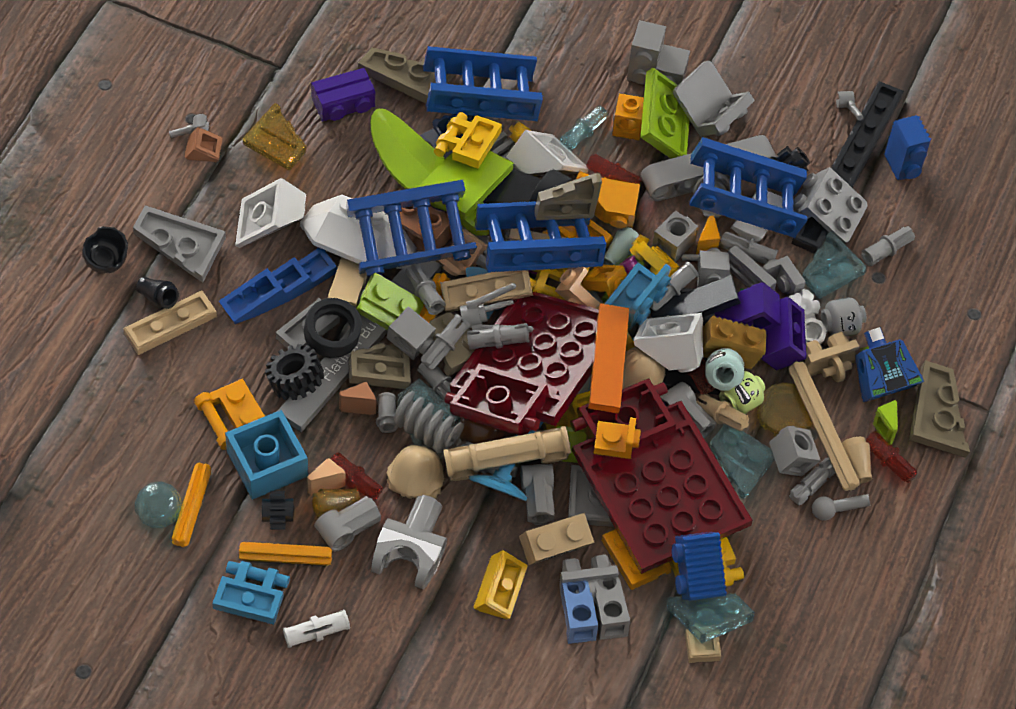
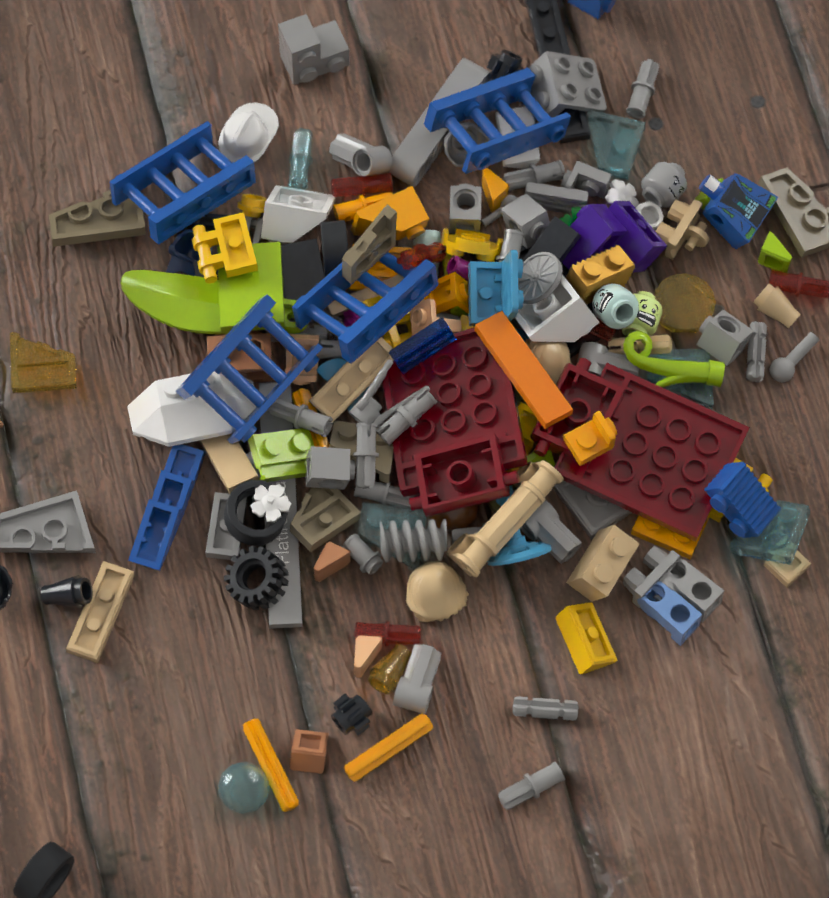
camera: 35 degrees left, 10 degrees up
(227, 516) = (309, 751): none -> nougat slope
(236, 402) = (233, 646): light orange plate -> none
(249, 599) = (394, 812): dark azure plate -> none
(266, 454) = (300, 671): dark azure brick -> none
(269, 211) = (99, 444): white slope -> none
(335, 623) = (472, 793): white pin -> none
(343, 95) = (63, 280): dark purple brick -> none
(346, 324) = (270, 502): none -> white plant
(363, 655) = (531, 786): none -> light grey axle
(412, 541) = (485, 654): light grey connector -> none
(424, 610) = (545, 708): none -> light grey axle
(552, 296) = (422, 345): none -> clear blue tile
(564, 87) = (248, 132): none -> white piece
(613, 240) = (415, 256): none -> clear red axle
(628, 117) = (330, 119): light orange brick -> none
(628, 151) = (361, 156): none -> light grey piece
(663, 118) = (365, 98): lime tile -> none
(679, 308) = (540, 277): none -> light grey wheel
(709, 101) = (393, 59): light grey bracket -> none
(733, 447) = (676, 370): none -> lime plant
(824, 426) = (729, 296): tan axle -> none

